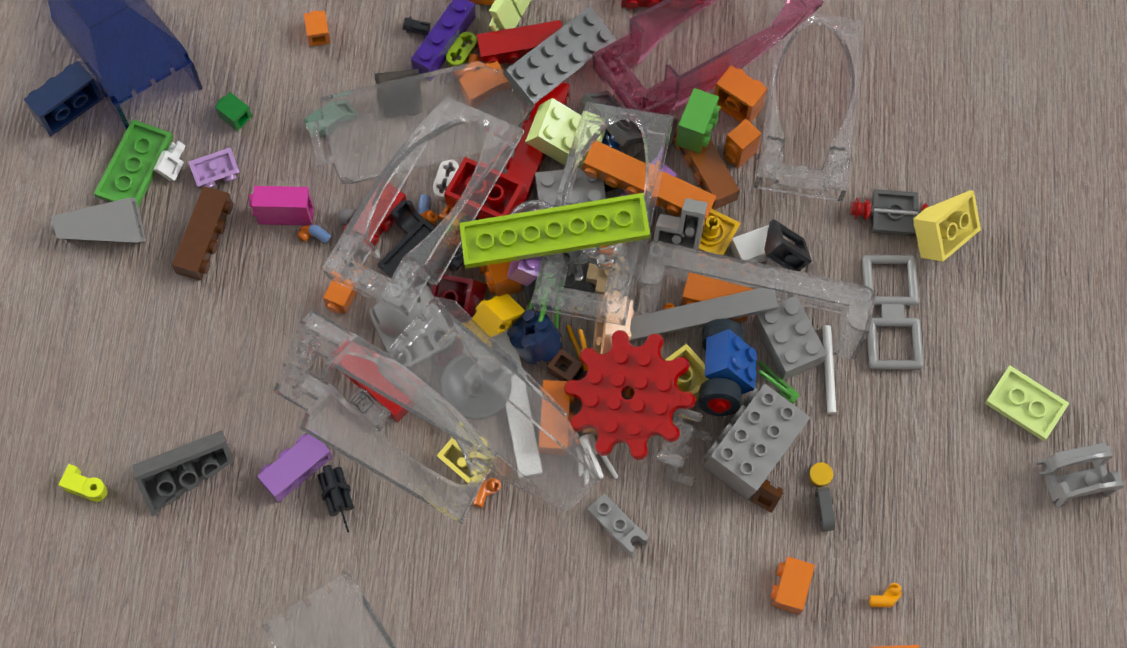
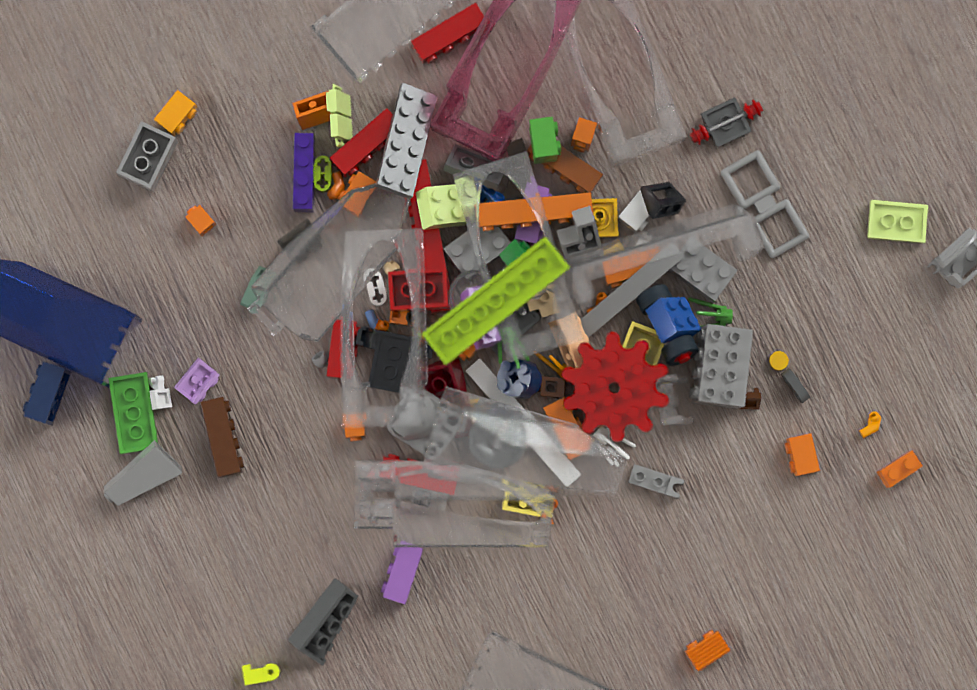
camera: 30 degrees left, 15 degrees up
(233, 111) = (180, 326): green brick -> none
(282, 205) = (269, 383): dark pink brick -> none
(313, 231) = (304, 386): arm -> none
(335, 491) = (443, 573): black piece -> none
(416, 26) = (275, 174): black pin -> none
(497, 314) = (483, 378): yellow brick -> none
(740, 94) = (560, 94): orange brick -> none
(829, 370) = (742, 276): white bar -> none
(947, 226) = (771, 115): light yellow slope -> none

